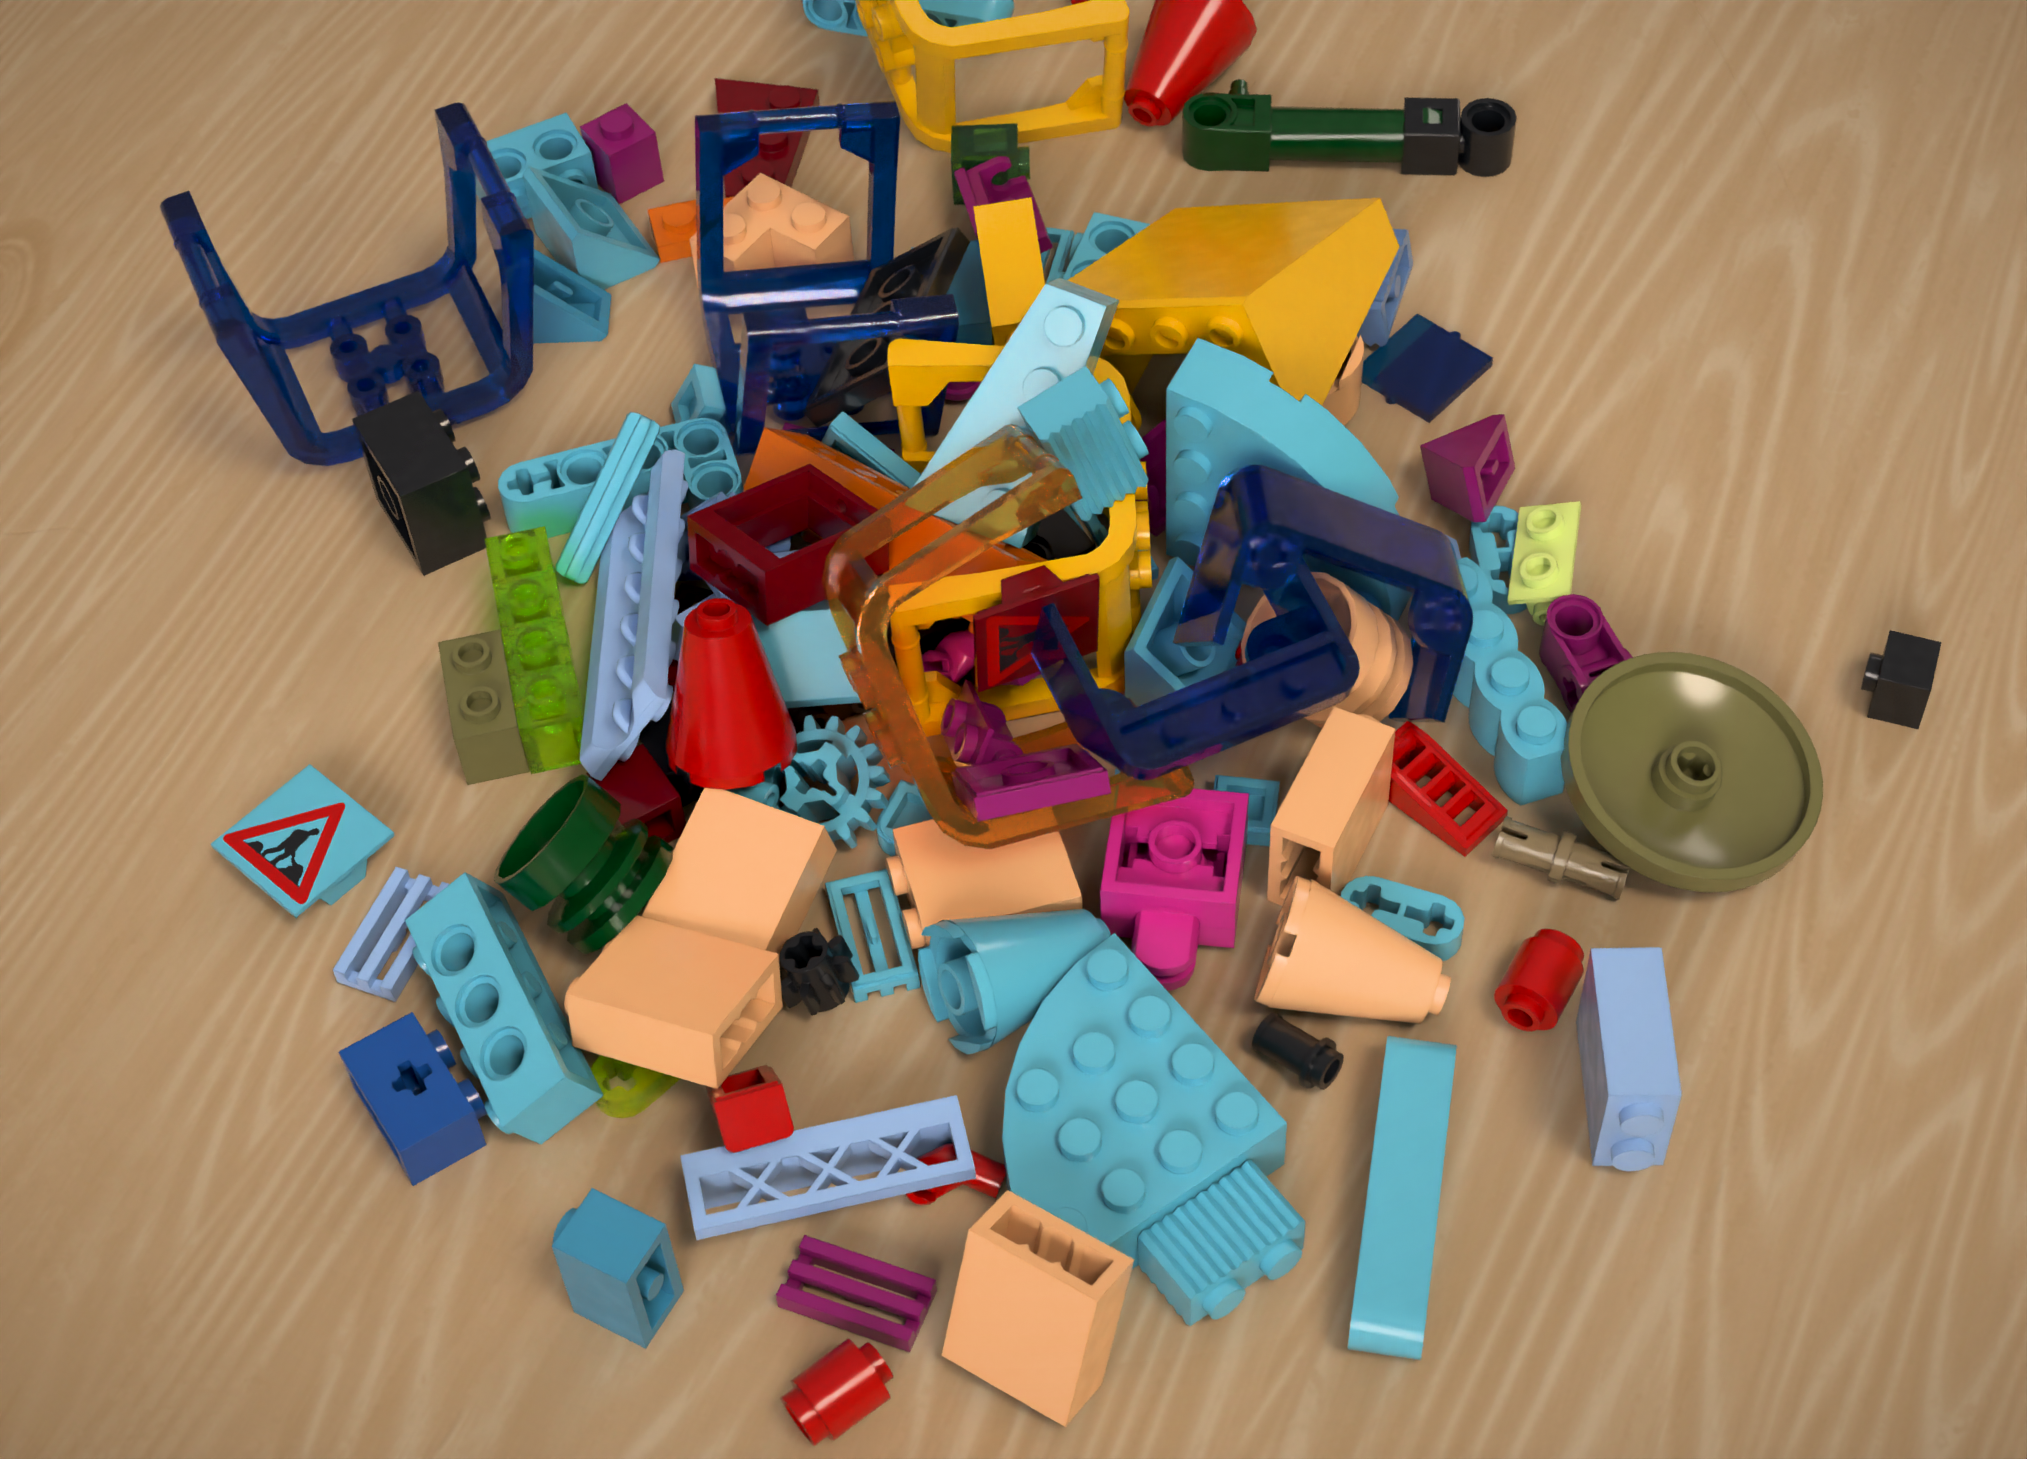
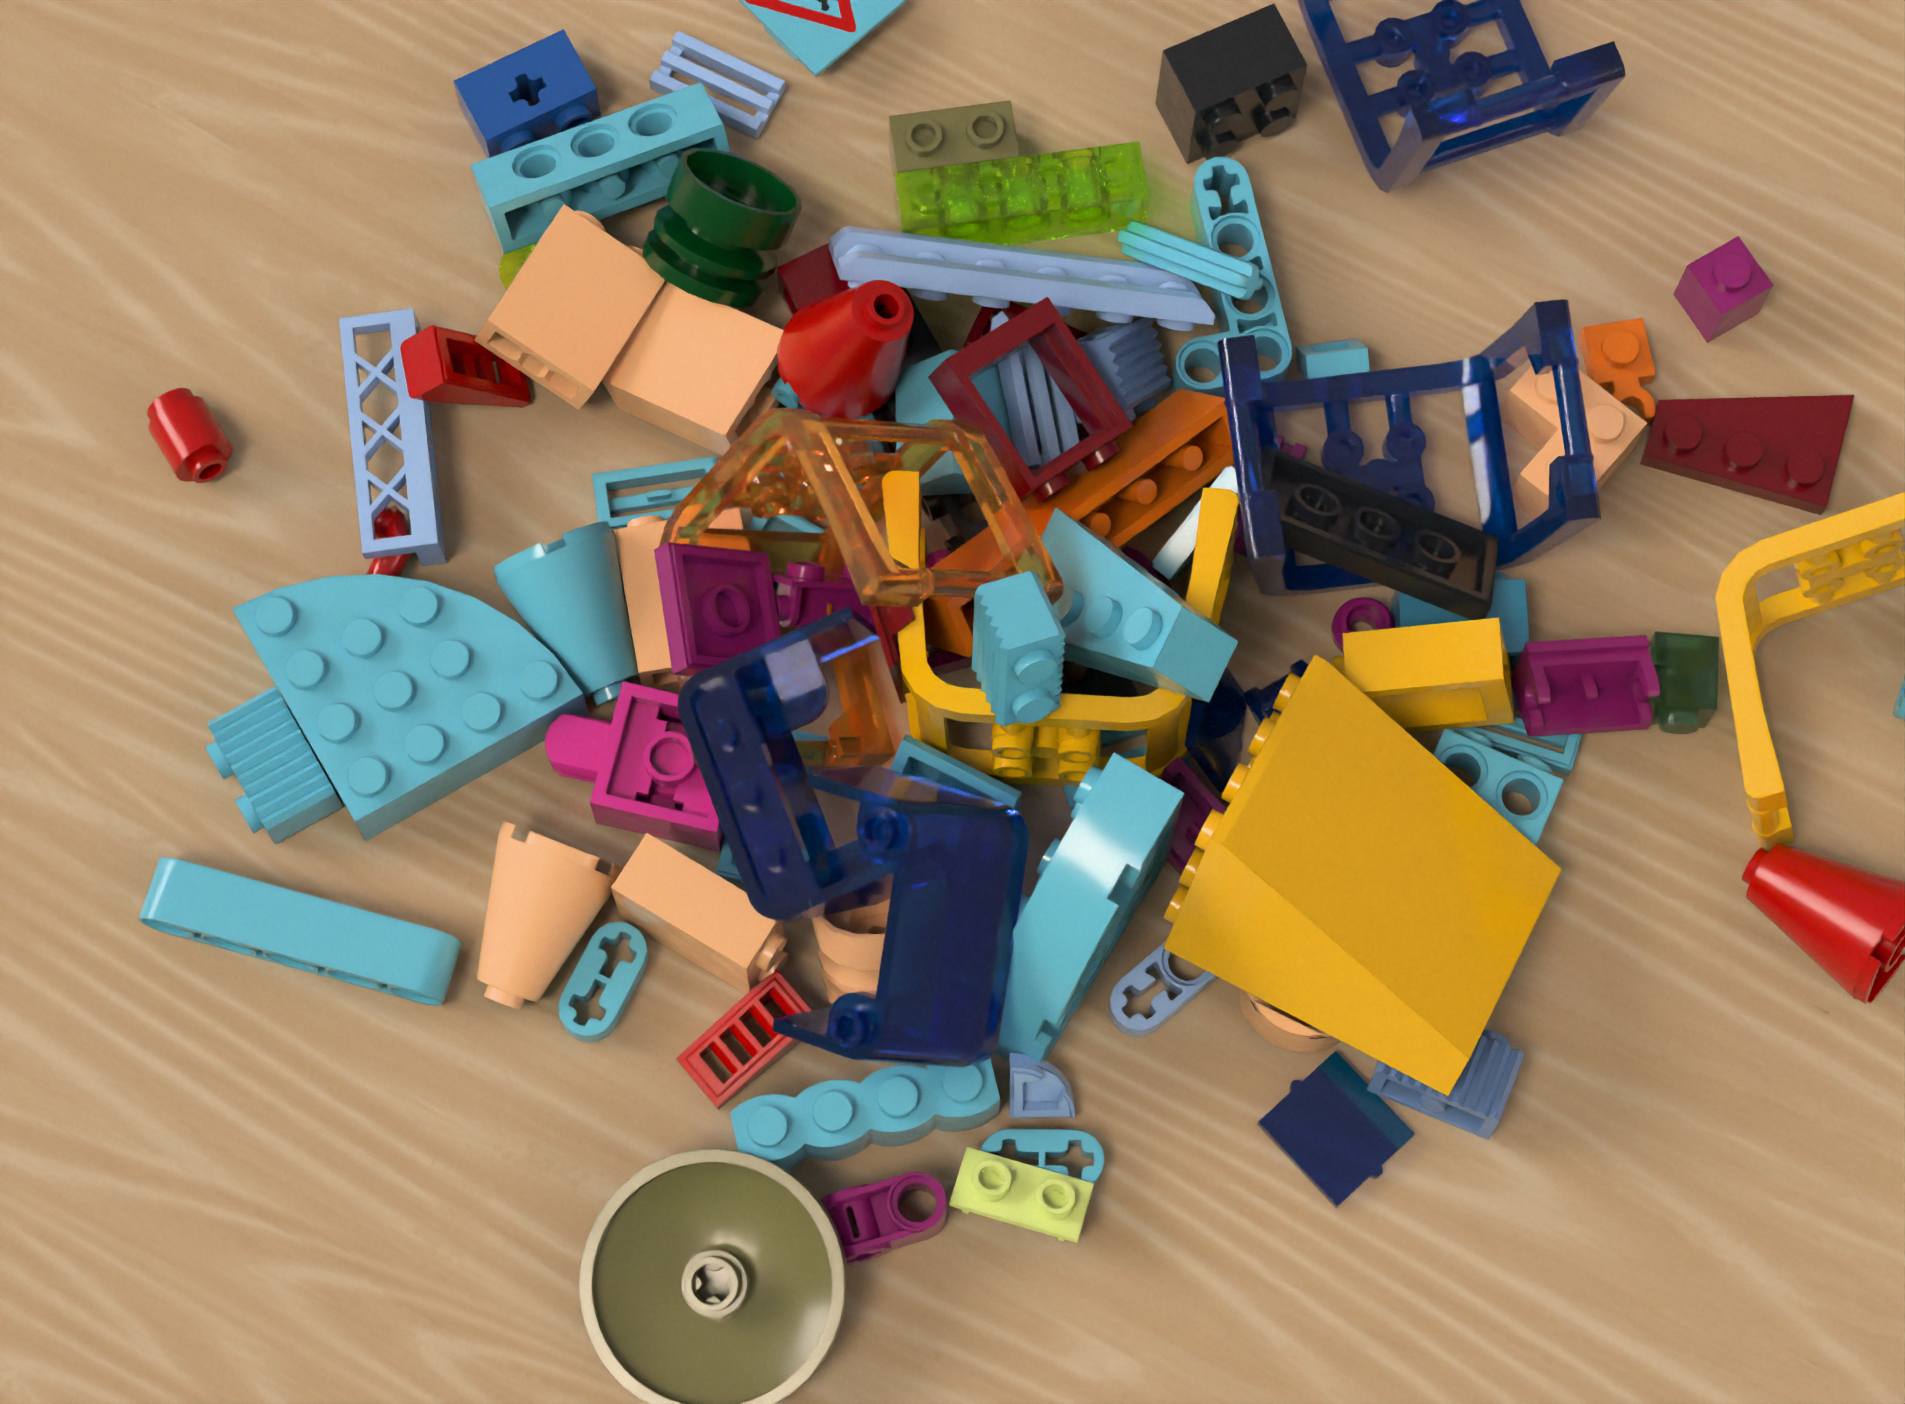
camera: 90 degrees right, 20 degrees up
(547, 146) = (1721, 195): medium azure brick -> none
(567, 305) = (1502, 219): dark azure slope -> none
(586, 230) = (1610, 253): medium azure slope -> none
(617, 1267) = (311, 254): dark azure brick -> none
(816, 971) = (607, 437): black gear -> none
(865, 1269) = (311, 415): magenta tile -> none
(1036, 1307) = (204, 585): light nougat brick -> none
(1311, 1059) = (463, 863): black pin -> none
(1426, 136) = (1690, 1167): dark green piece -> none
(1470, 467) = (1152, 1142): magenta slope -> none
(1540, 980) = (503, 1094): red brick -> none
(1561, 857) = (651, 1135): dark tan pin -> none
(1628, 1057) = (381, 1144): light blue brick -> none

